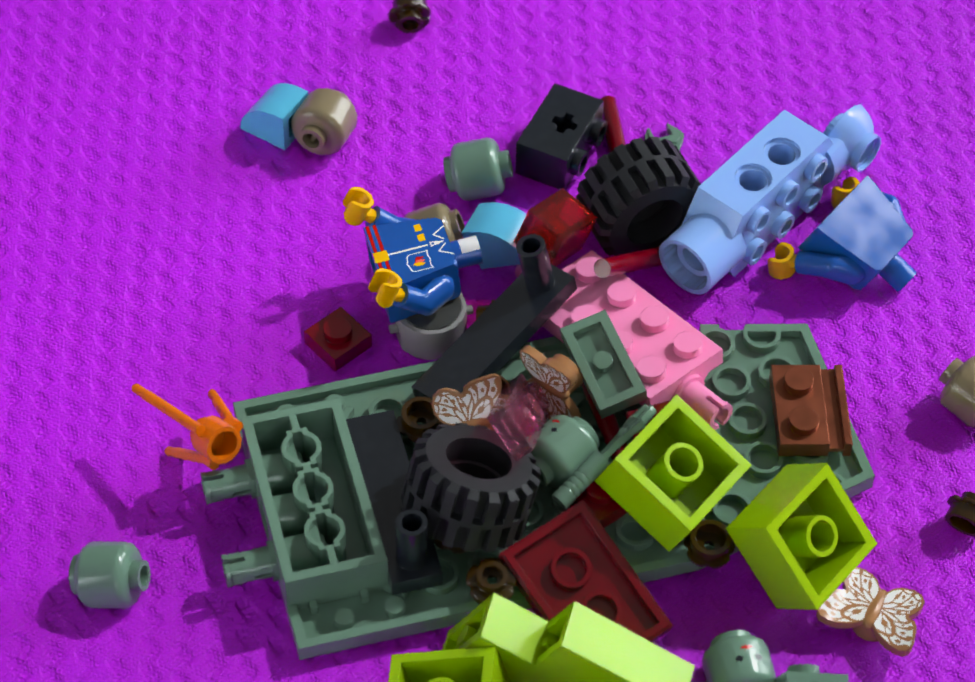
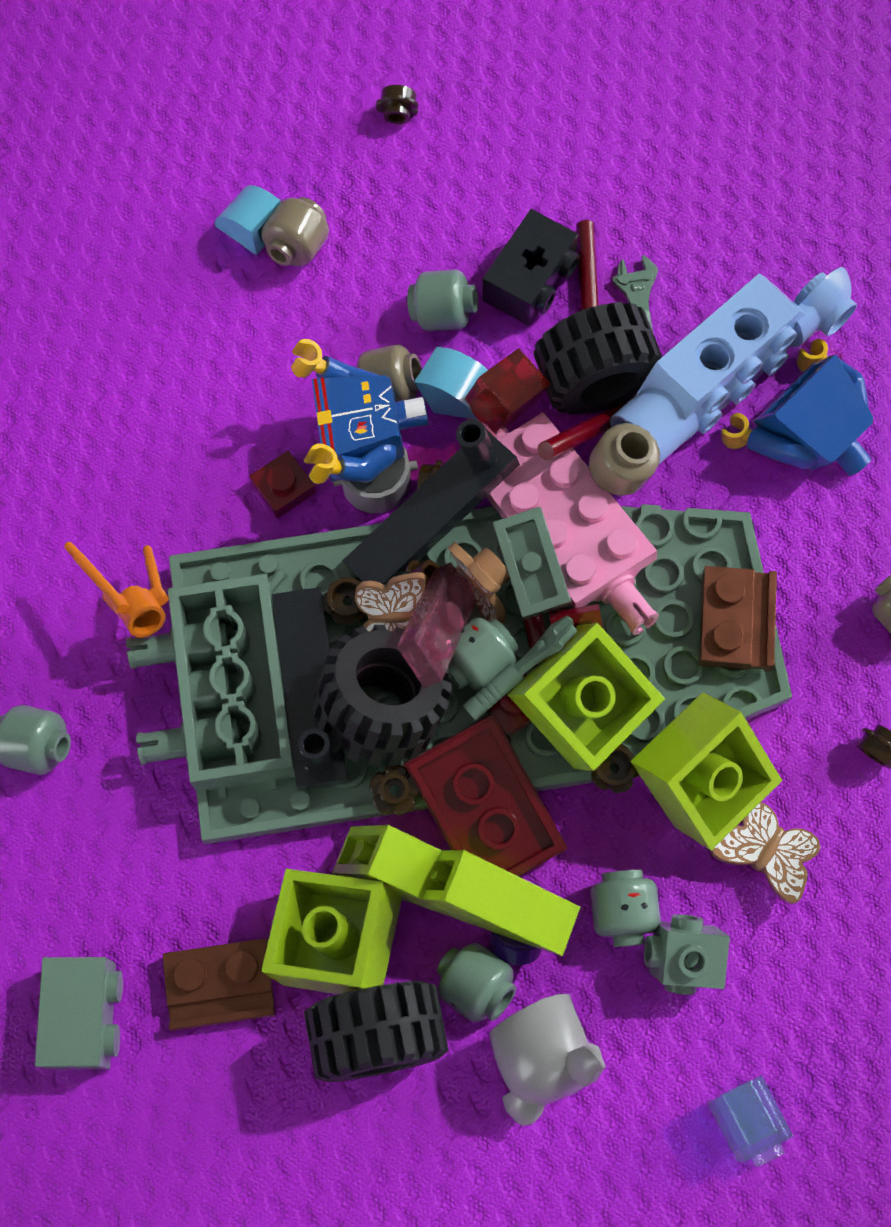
camera: 10 degrees right, 20 degrees up
(679, 274) = (624, 459): none -> dark tan head

